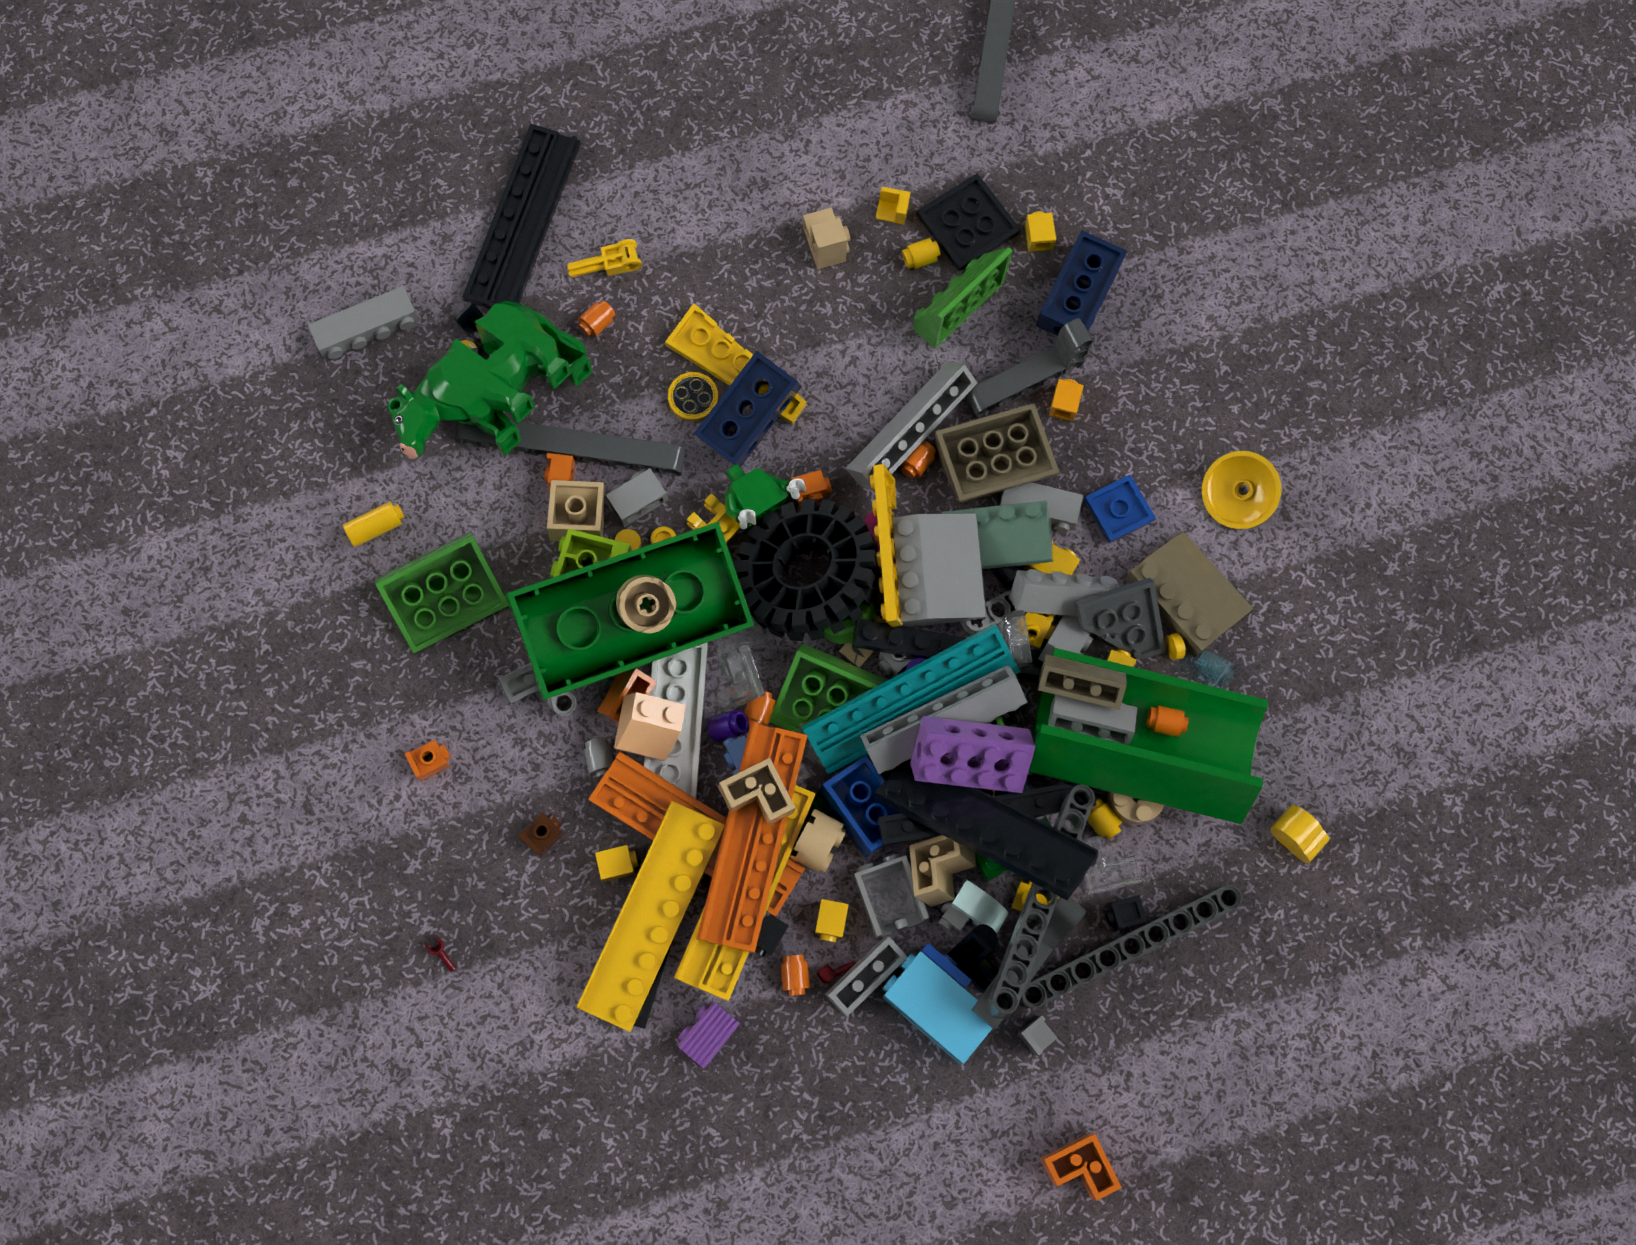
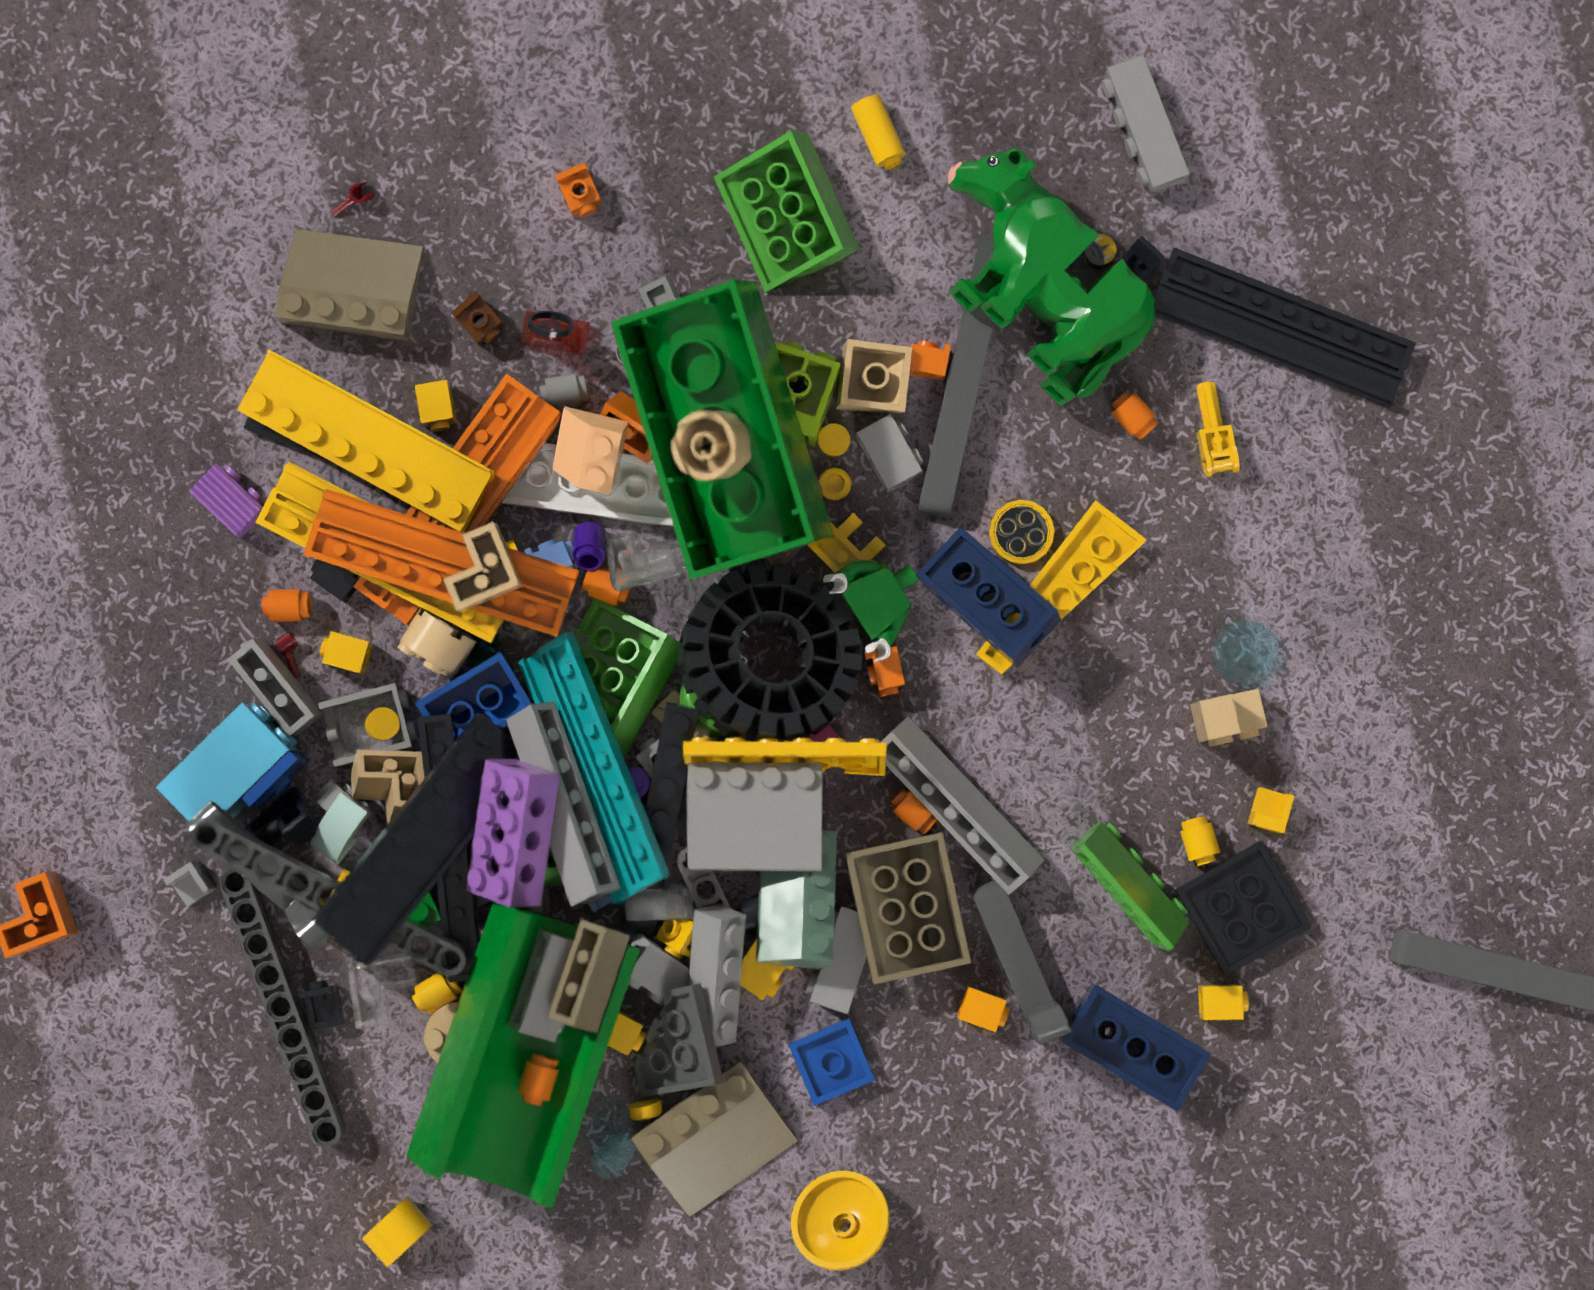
camera: 100 degrees right, 10 degrees up
(515, 946) = (350, 285): none -> dark tan slope
(549, 770) = (555, 332): none -> clear red piece
(774, 232) = (1235, 654): none -> clear light blue tile
(889, 883) = (382, 724): none -> yellow tile

